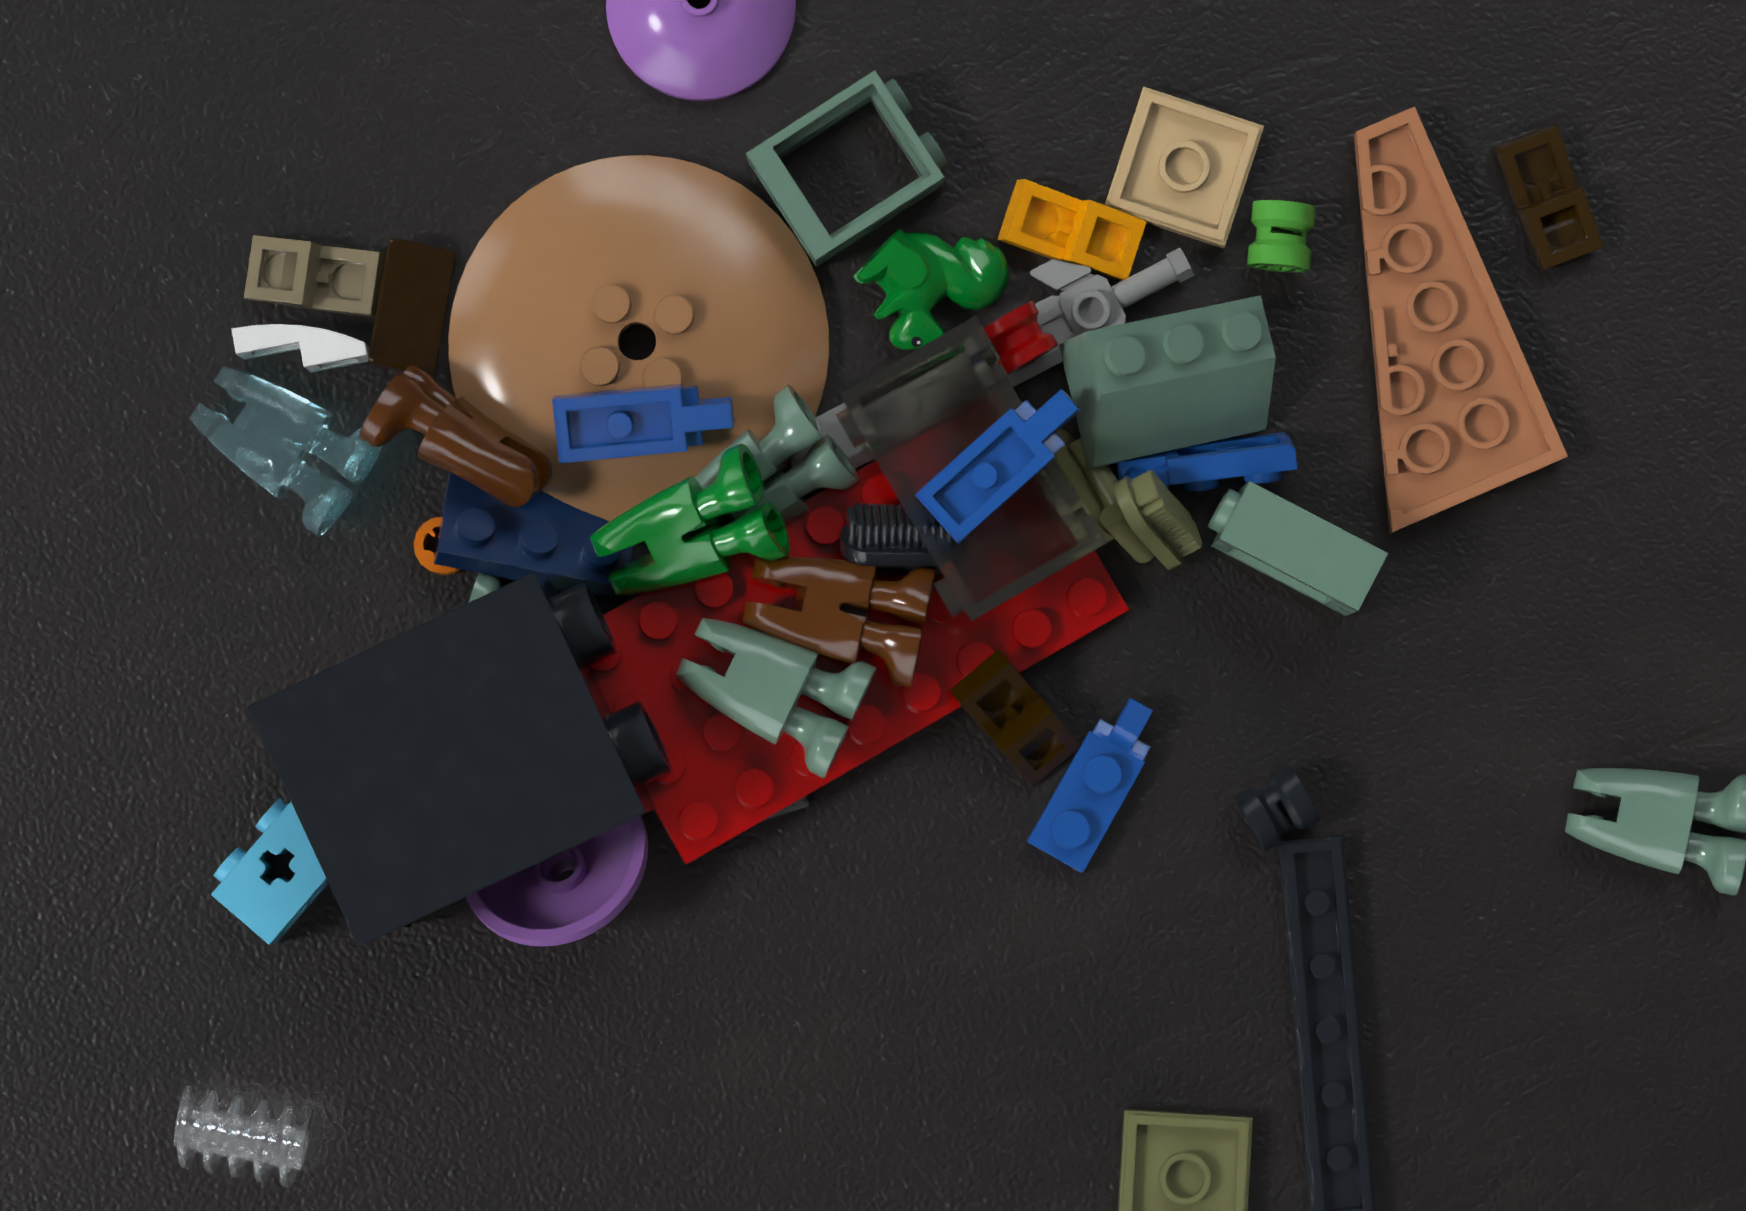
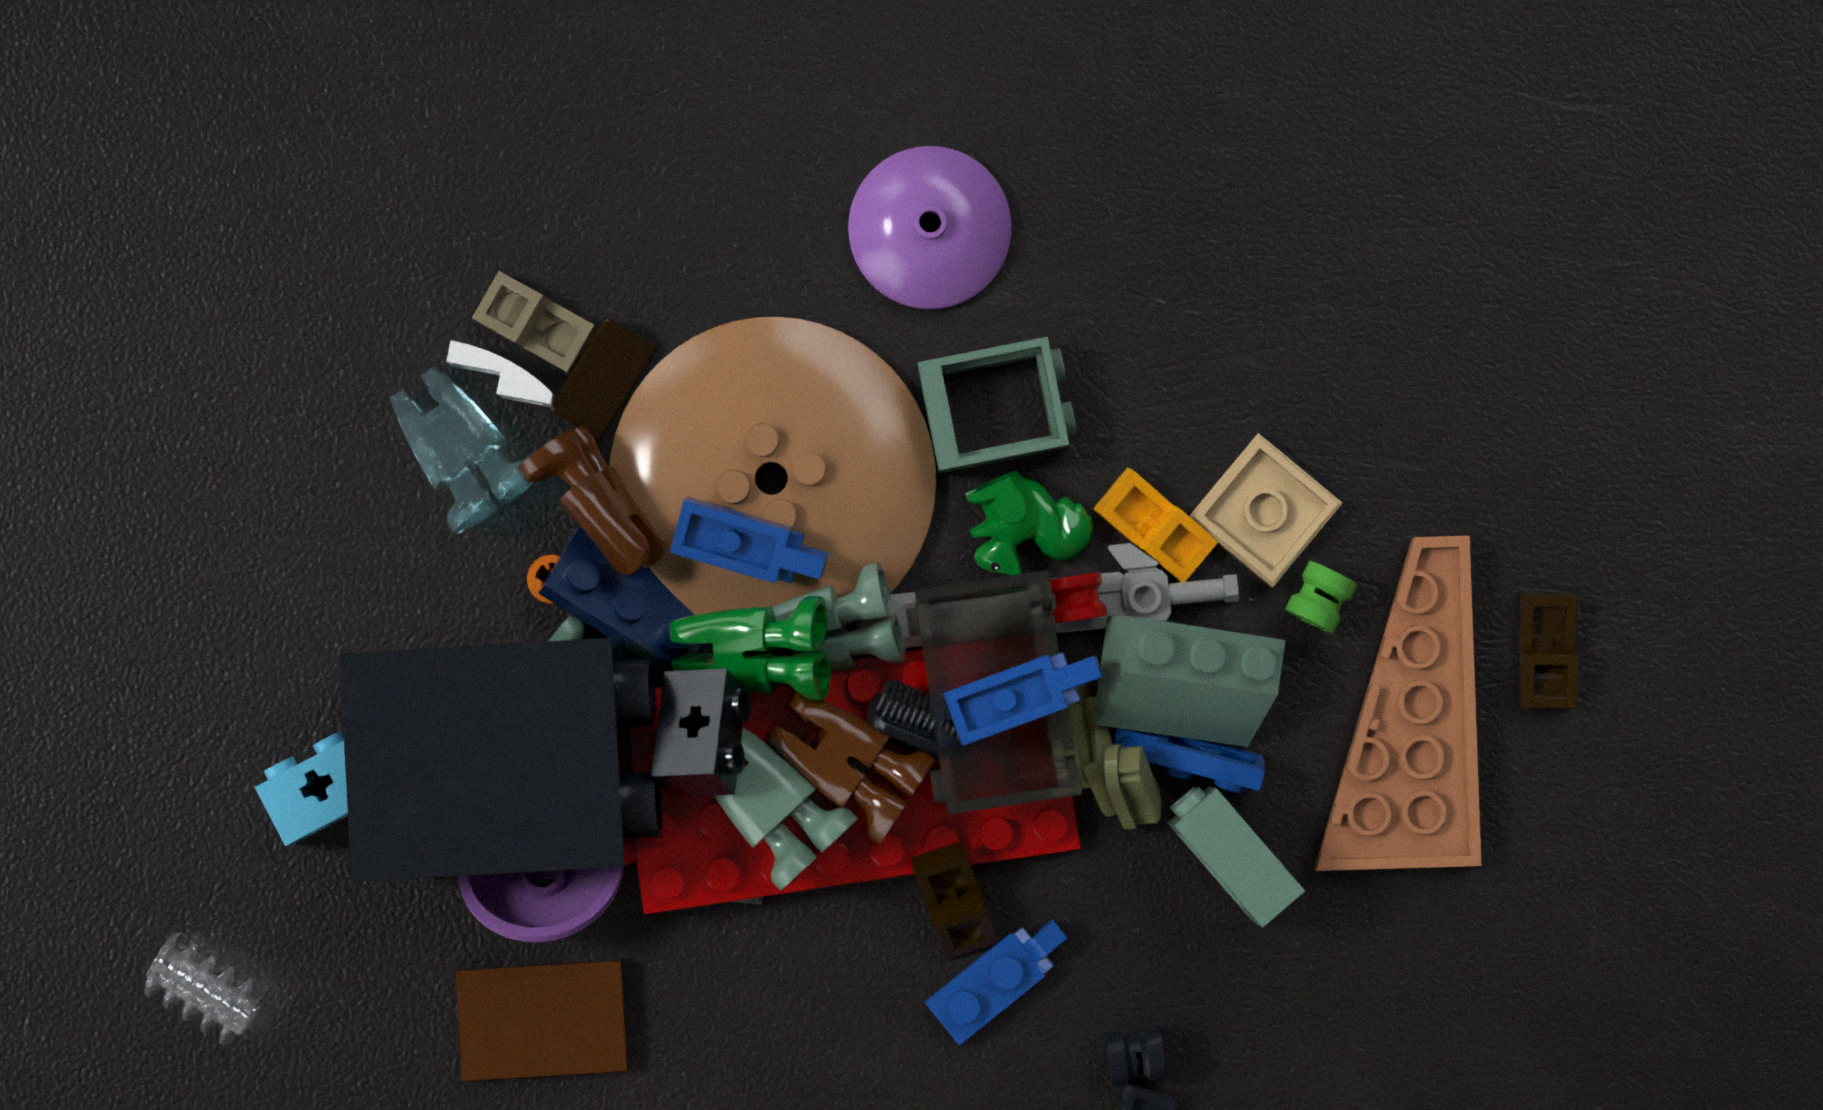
camera: 20 degrees right, 0 degrees up
(621, 1025) = (542, 1020): none -> reddish brown tile
(670, 640) = (700, 733): none -> black brick

